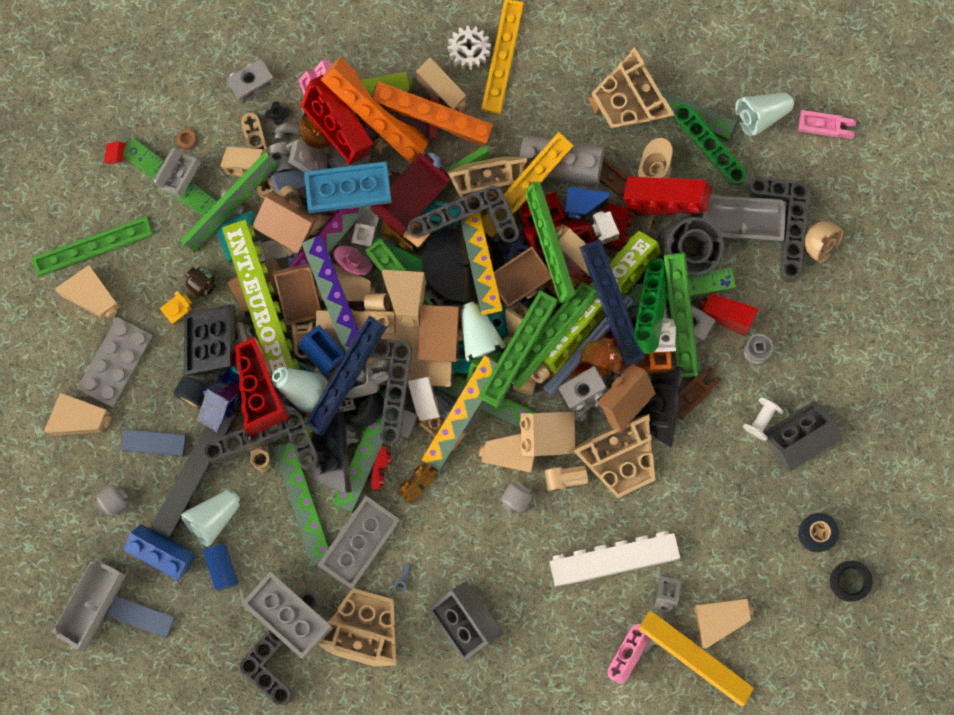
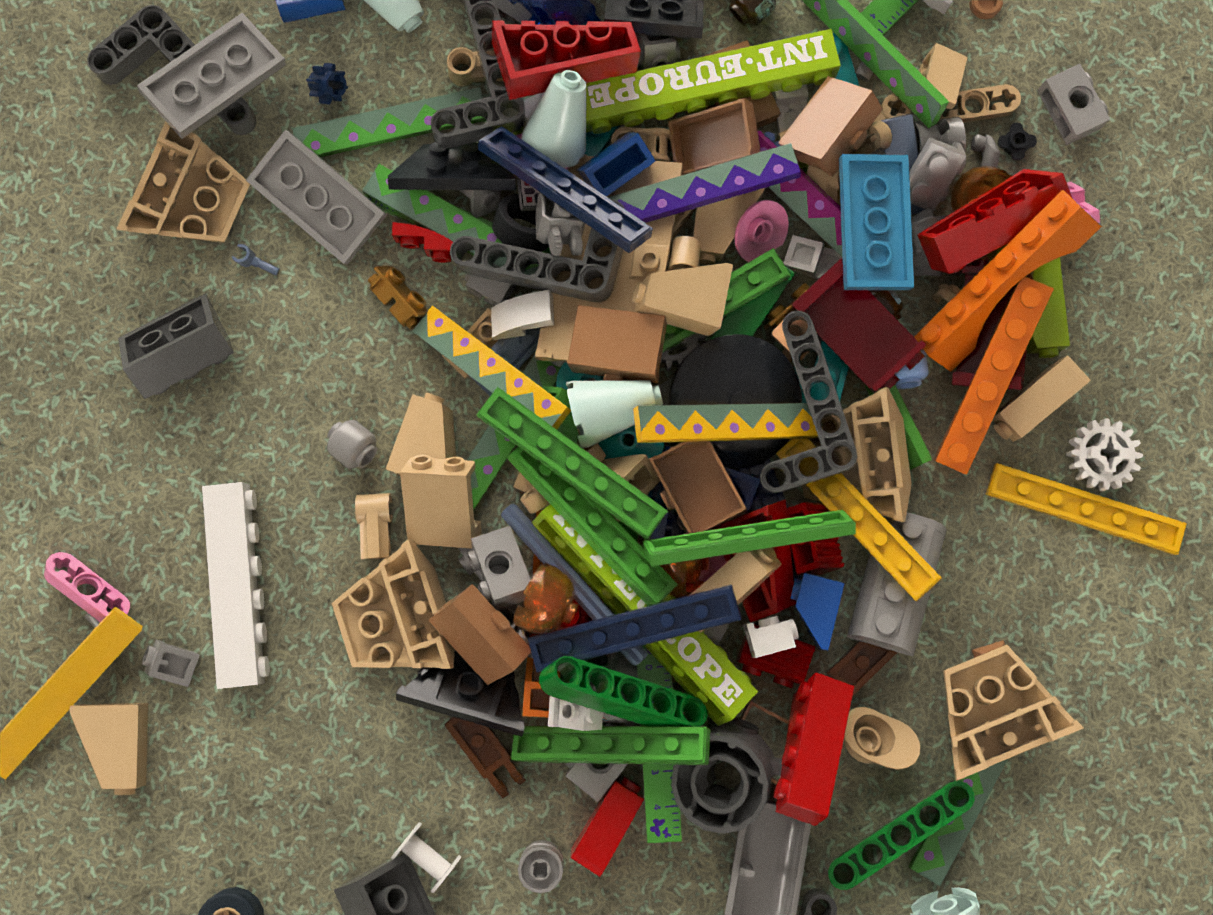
camera: 90 degrees right, 5 degrees up
(280, 546) = (327, 83): none -> dark blue gear

